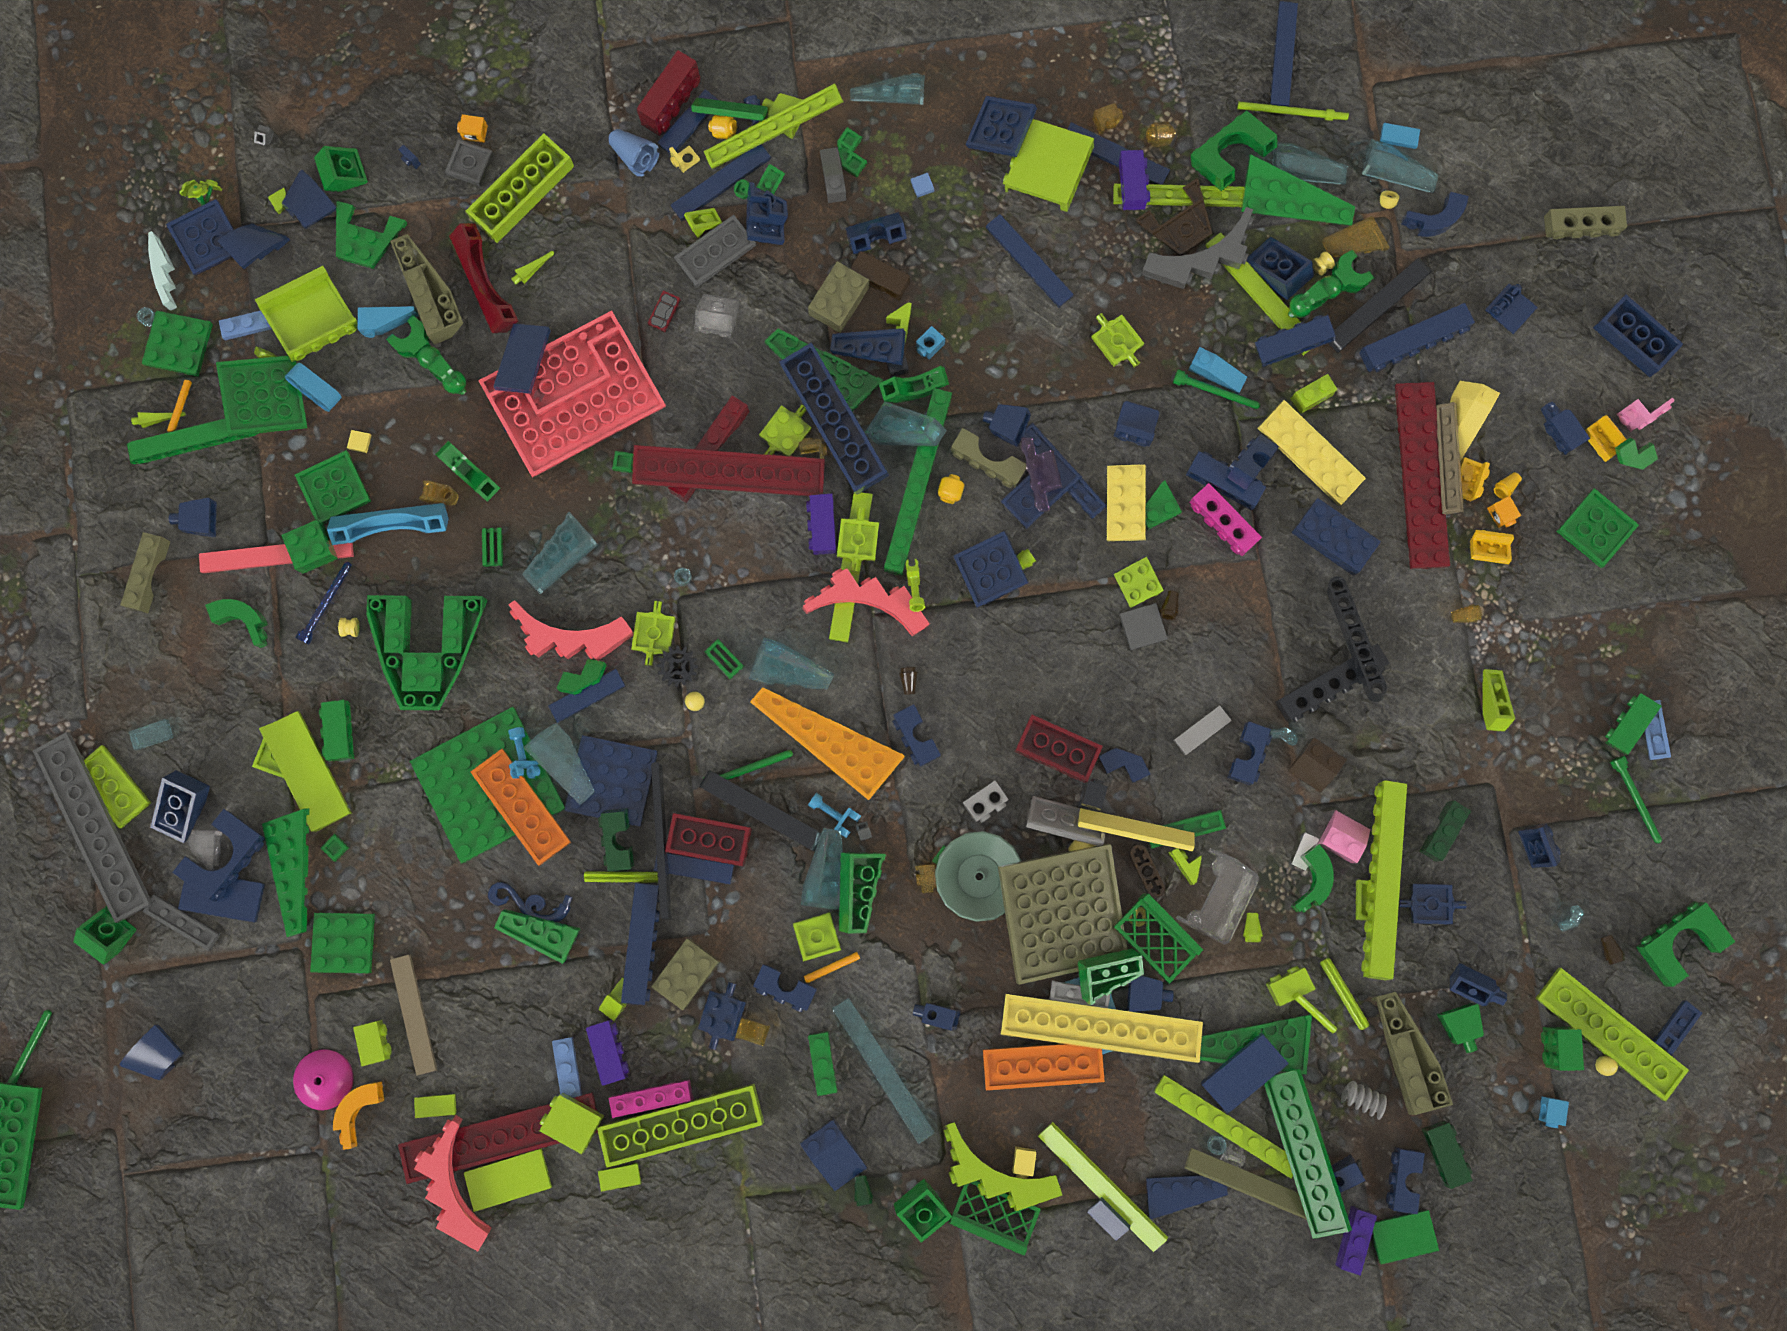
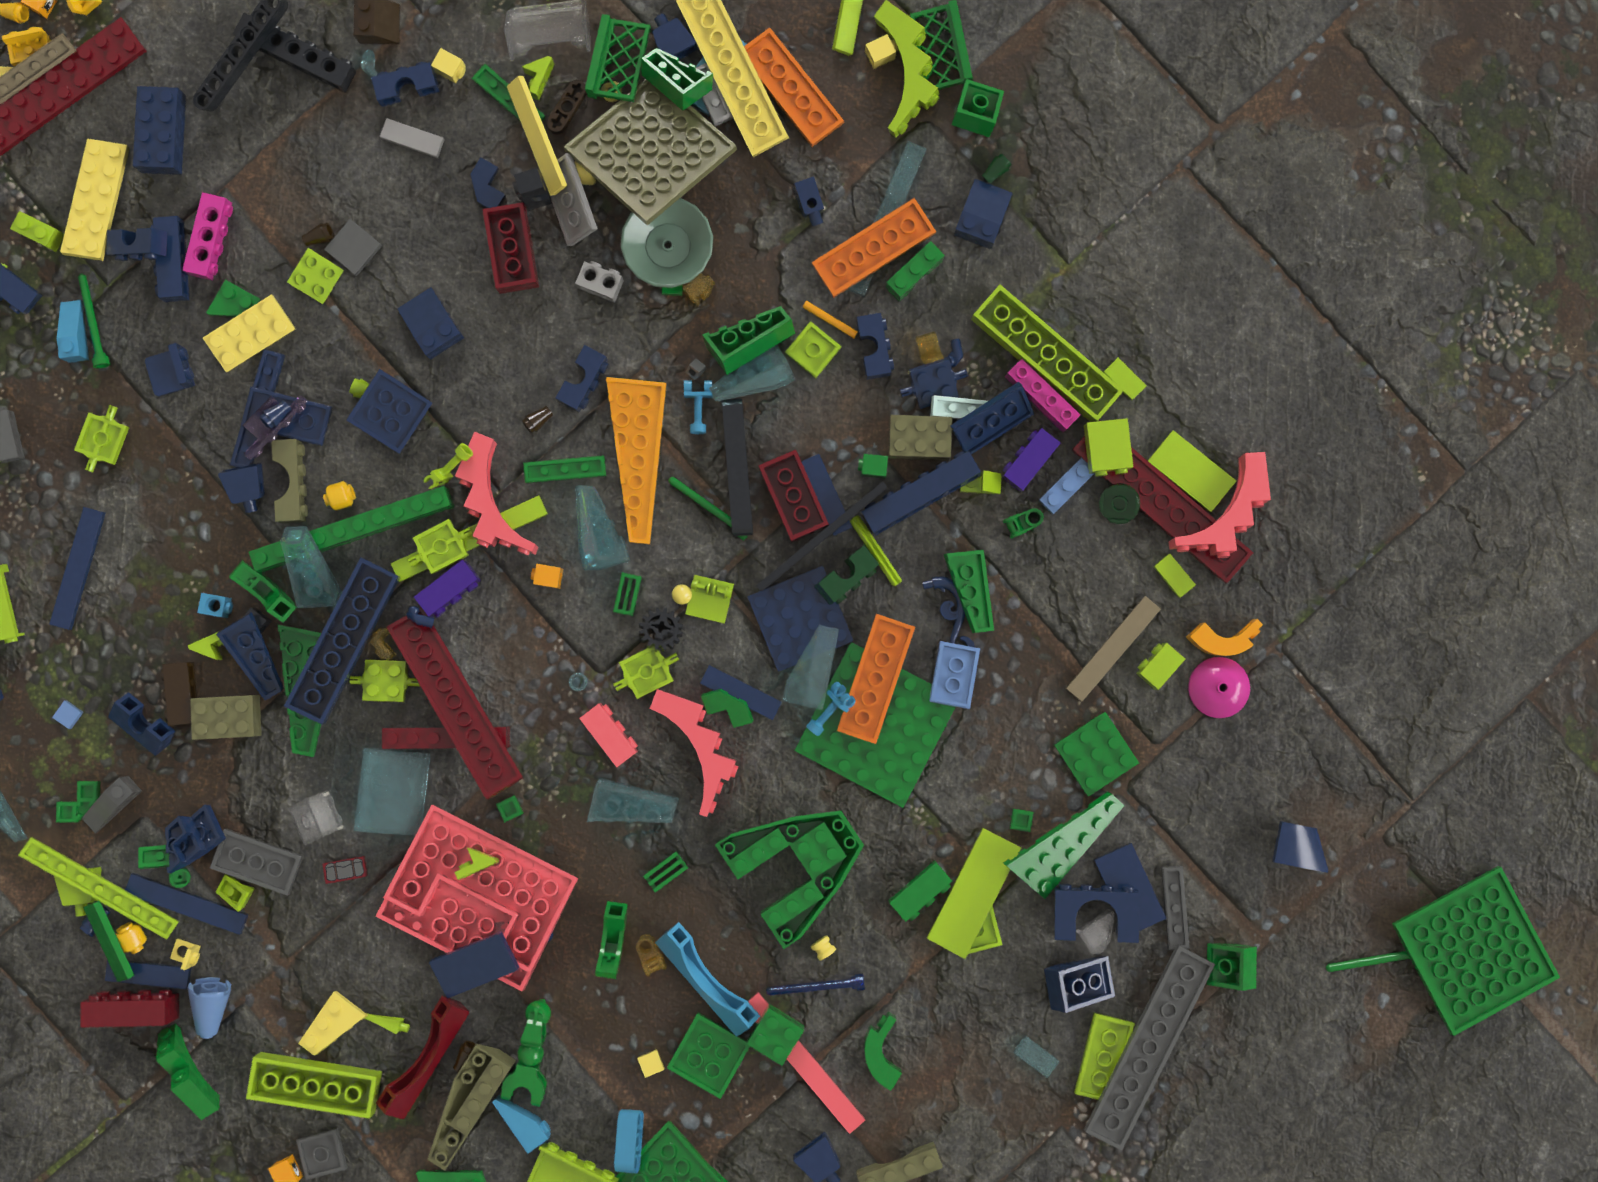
camera: 125 degrees left, 5 degrees up
(465, 310) = (463, 1053): none -> dark brown cone
(481, 871) = (954, 675): none -> medium blue tile
(522, 1101) = (1119, 503): none -> dark green tile
(557, 228) = (332, 1021): none -> light yellow wing
(561, 1009) = (1022, 523): none -> green piece
(590, 101) = (185, 1077): none -> green arch
(595, 413) = (480, 861): none -> lime slope
(625, 573) = (609, 734): none -> coral brick
(659, 1043) = (992, 419): none -> dark blue tile
(675, 720) = (709, 599): none -> lime hinge
(685, 1023) = (953, 407): none -> light aqua plate
(689, 920) = (873, 466): none -> green brick
(696, 382) = (391, 791): none -> clear light blue slope
(734, 1052) = (956, 354): none -> dark blue arm
(779, 606) = (547, 576): none -> light orange brick
(811, 486) = (422, 620): none -> dark blue arm
(855, 675) = (564, 469): none -> green tile
(863, 1042) = (873, 247): none -> orange plate
(1041, 646) = (430, 323): none -> dark blue slope
(1043, 479) = (274, 415): none -> dark blue cone
(1241, 797) = (448, 66): none -> light yellow brick

